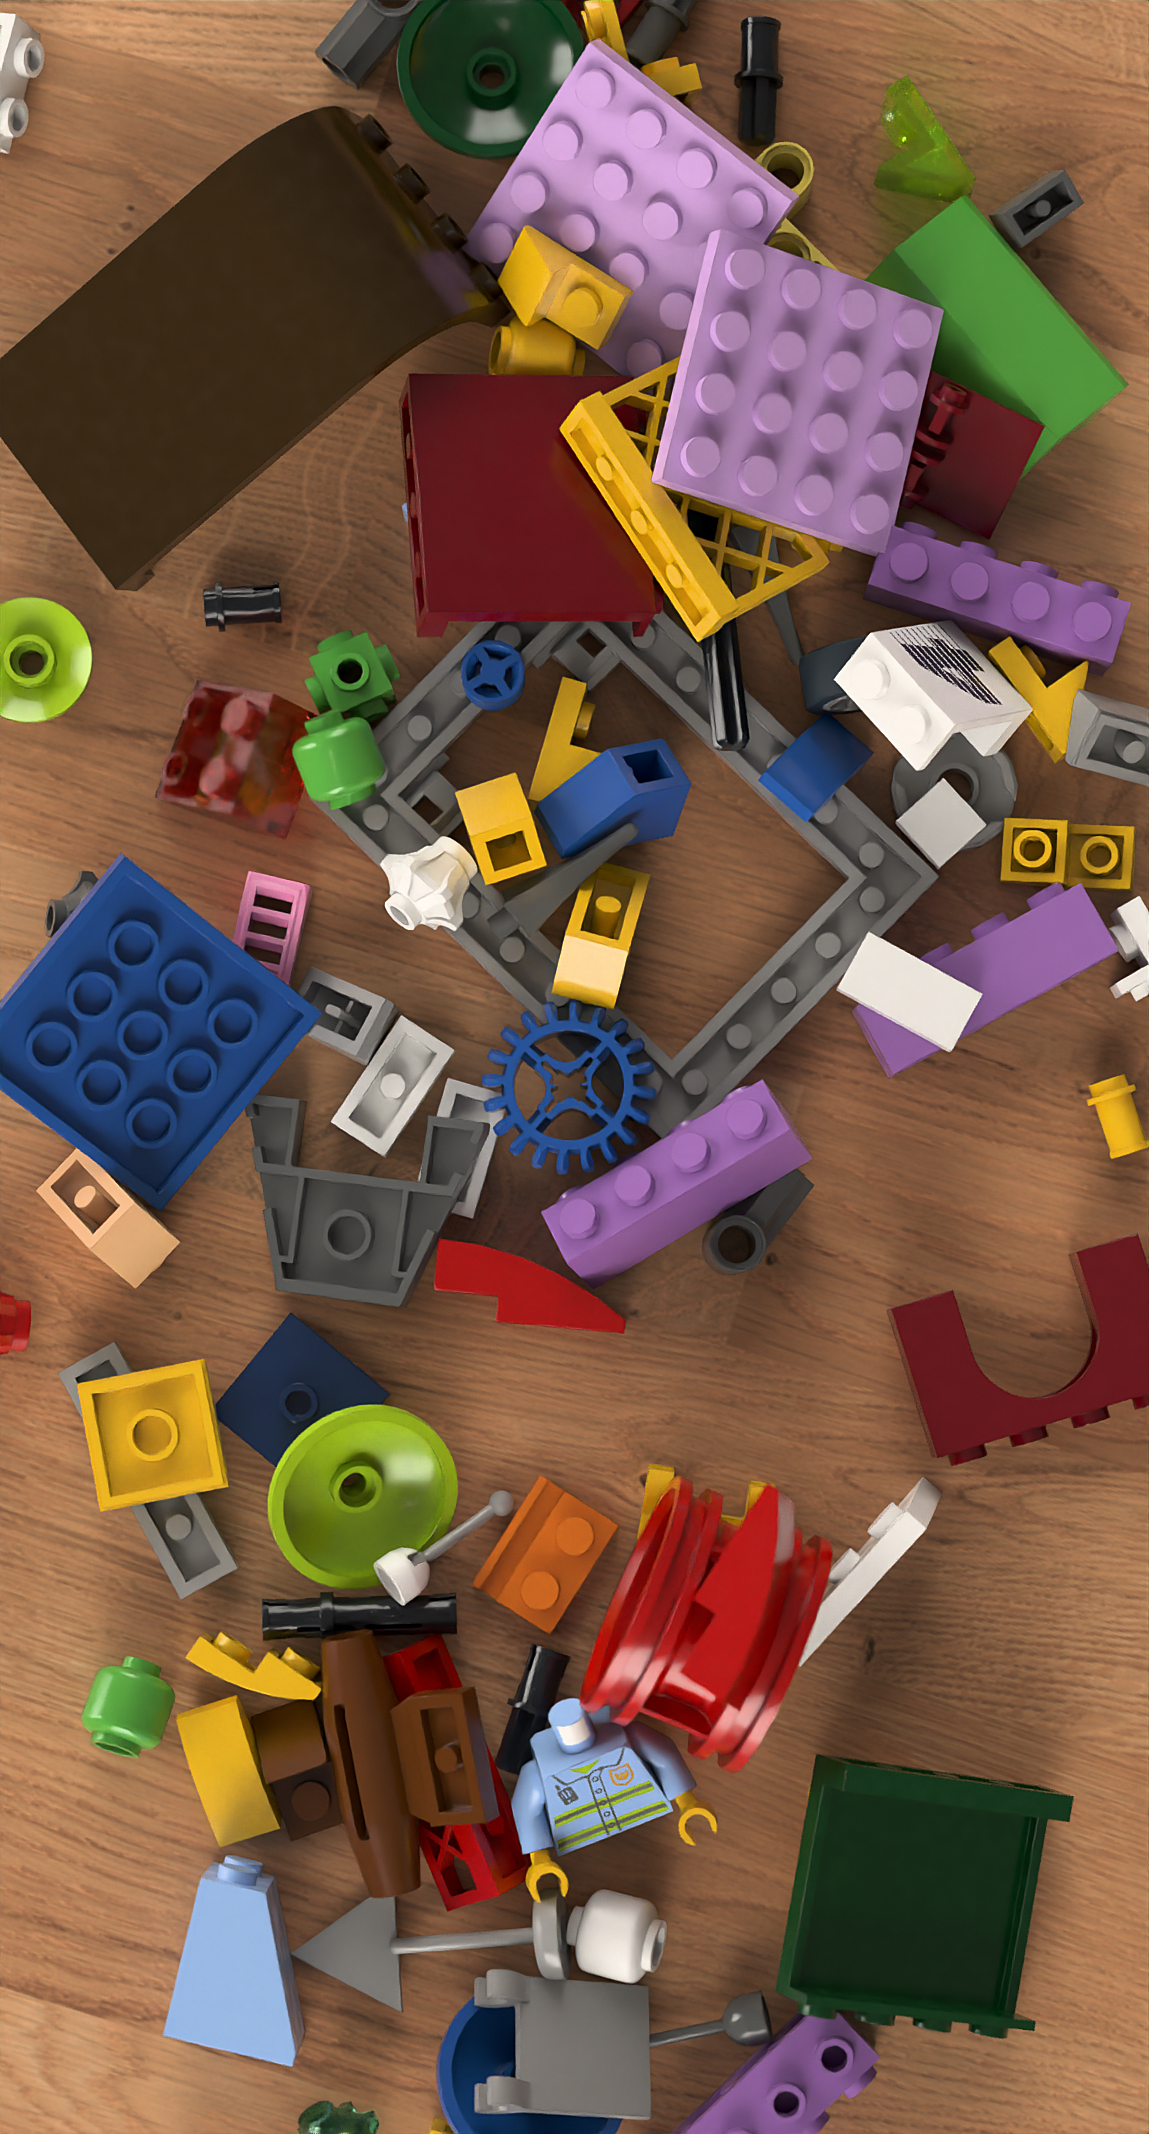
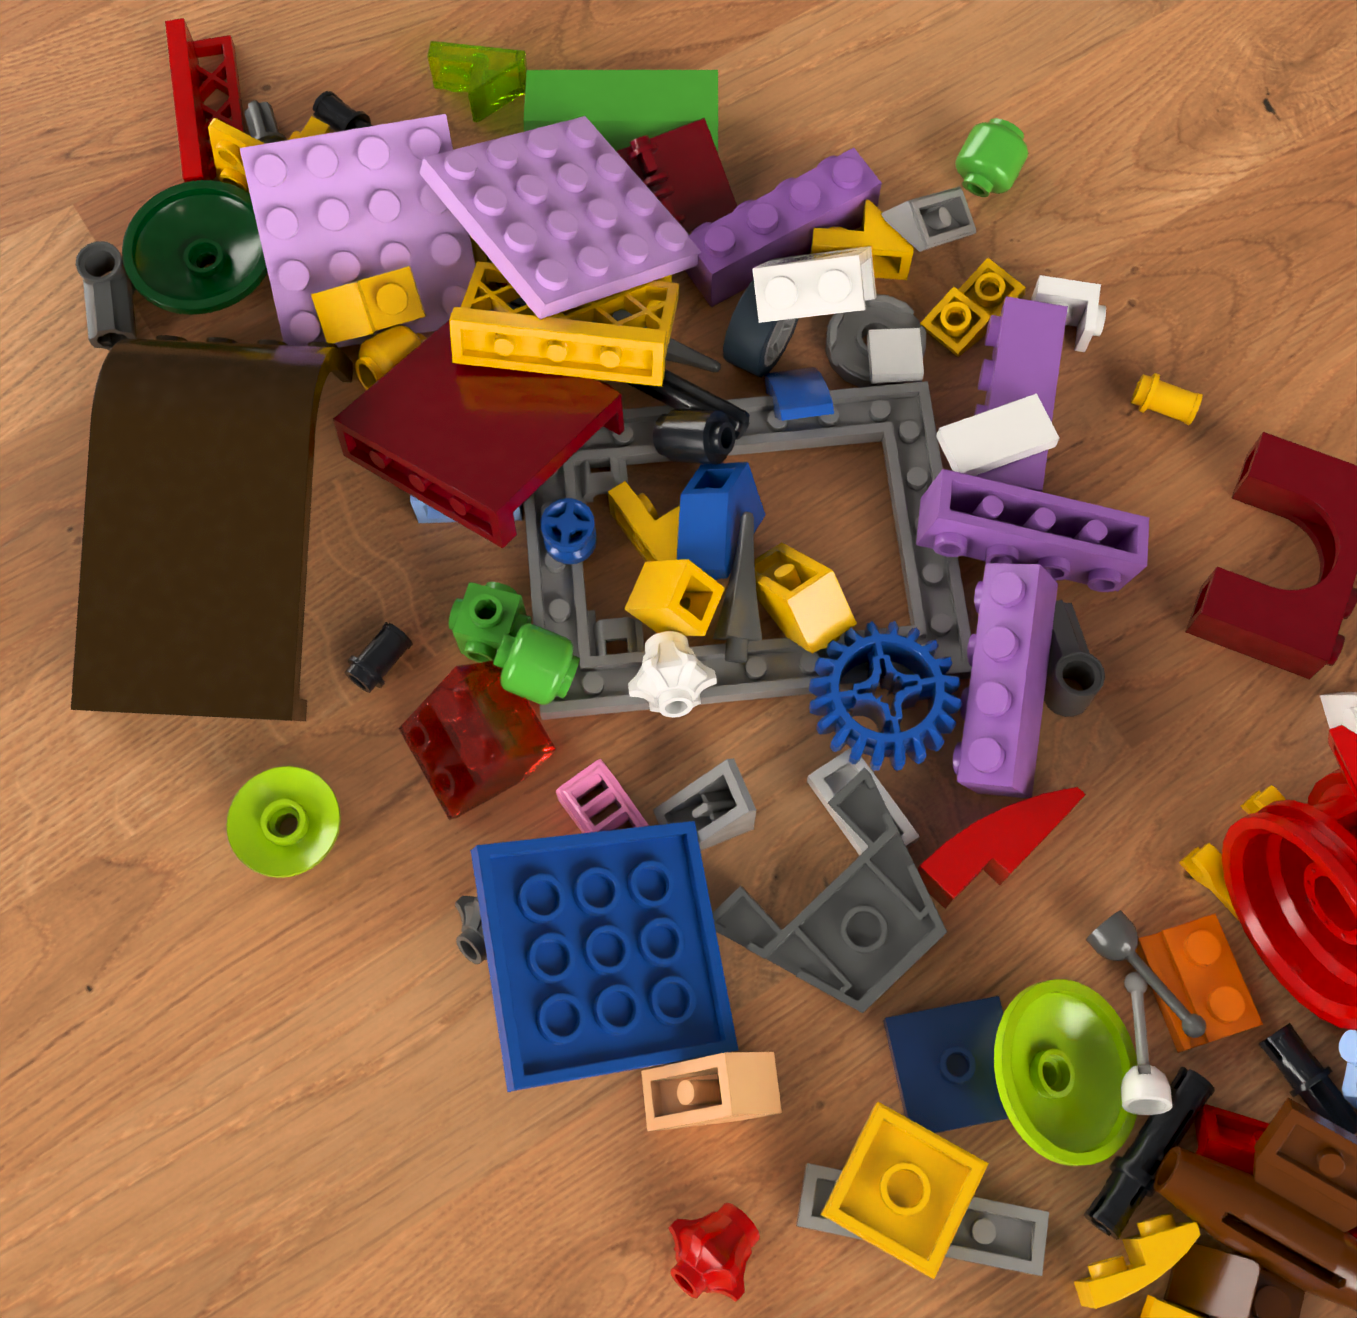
camera: 50 degrees left, 15 degrees down
(393, 1086) = (784, 819): white plate -> none
(522, 1459) = (1117, 941): none -> dark grey hinge
(679, 711) = (694, 436): none -> black brick
(843, 1096) = (1028, 526): none -> medium lavender brick
(1036, 208) = (570, 42): dark grey piece -> none

